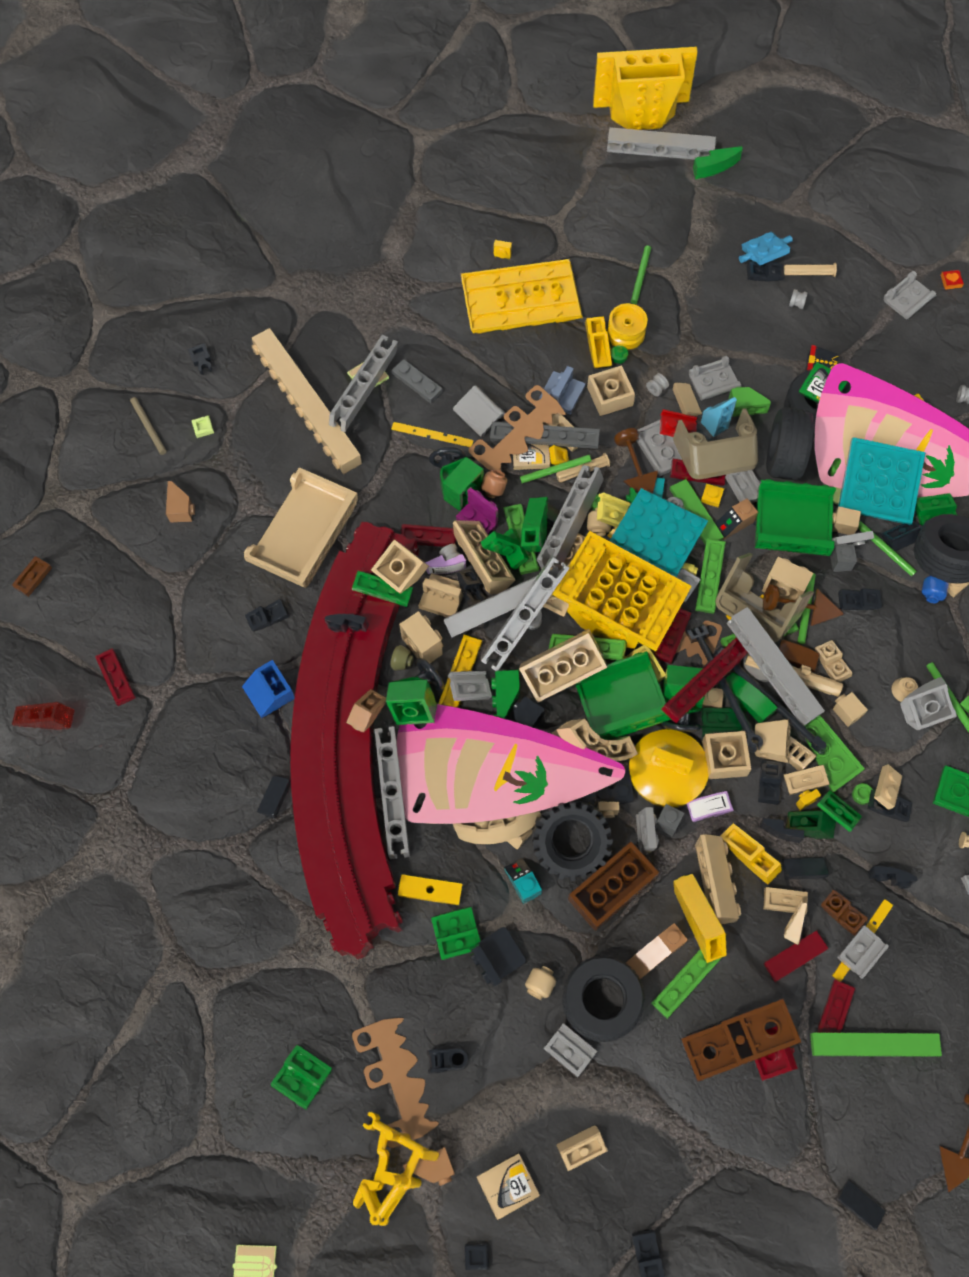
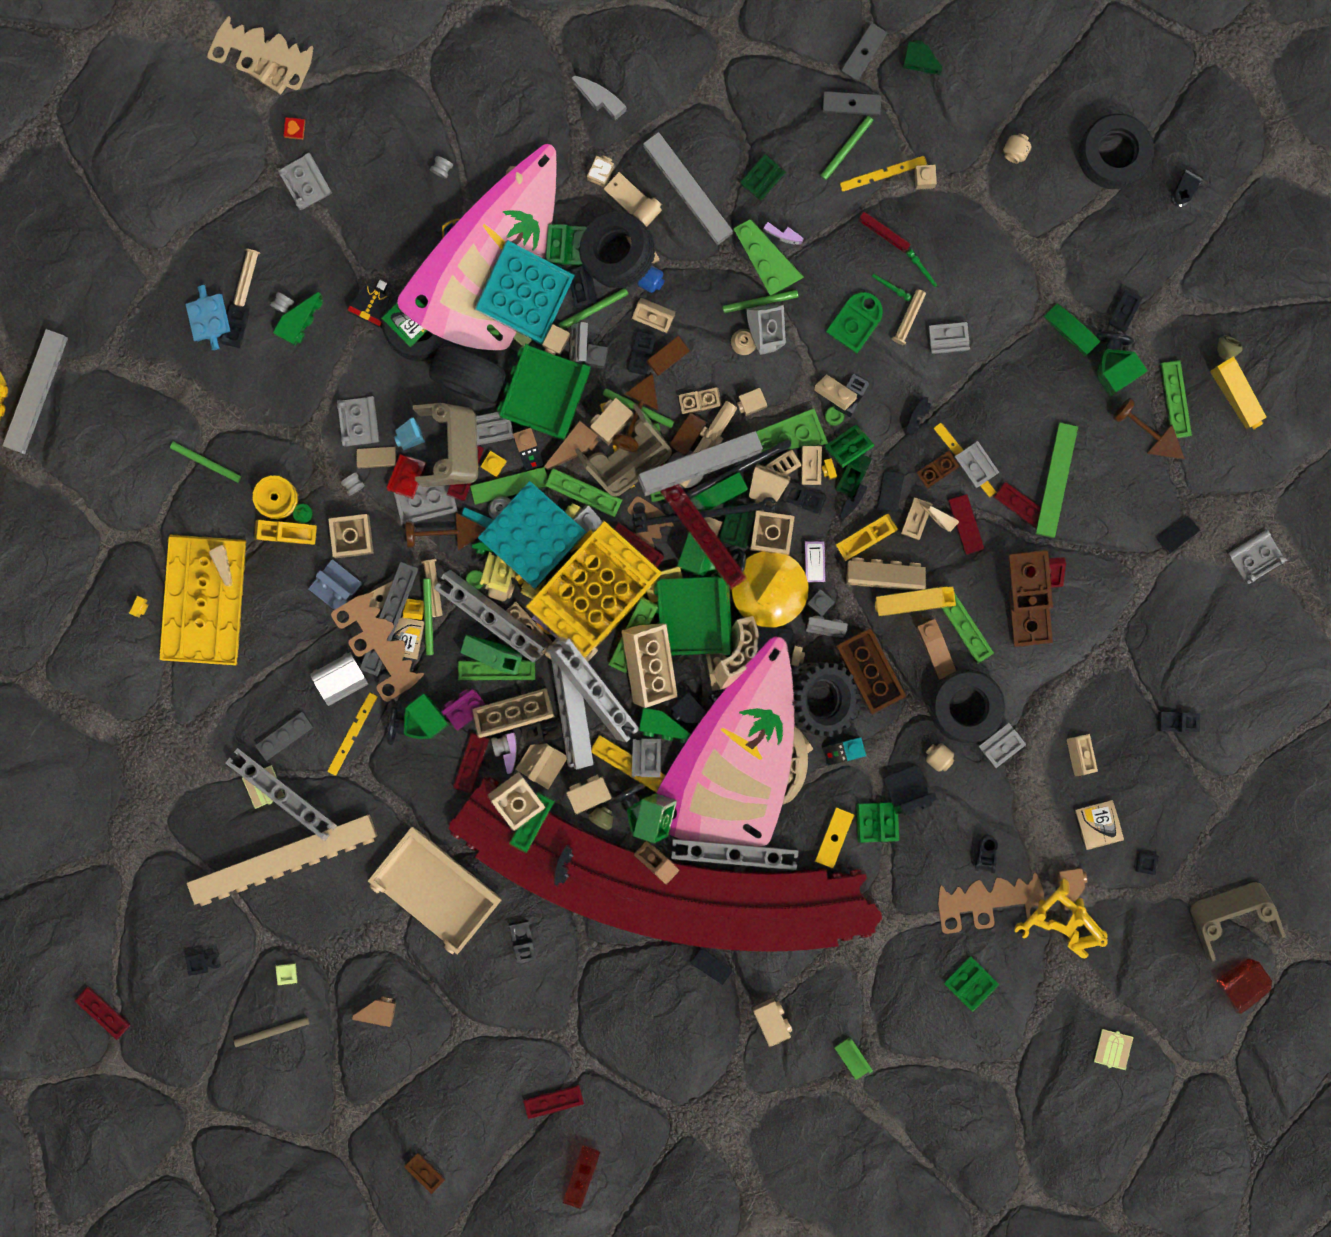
camera: 80 degrees left, 20 degrees up
(145, 296) = (102, 1013): none -> dark red tile
(200, 963) = (853, 1058): none -> bright green panel
(224, 865) = (771, 1021): none -> tan brick
(267, 689) = (605, 954): blue slope -> none
(494, 483) = (432, 683): nougat head -> none
(507, 545) = (508, 686): green bracket -> none
(556, 298) = (220, 559): none -> tan slope
(716, 162) = (76, 336): green slope -> none
(749, 399) = (395, 397): bright green slope -> none
(760, 562) = (581, 438): none -> medium nougat slope
(786, 312) = (296, 320): none -> green slope
(867, 621) = (668, 355): none -> reddish brown slope
(900, 602) = (653, 315): none -> tan slope

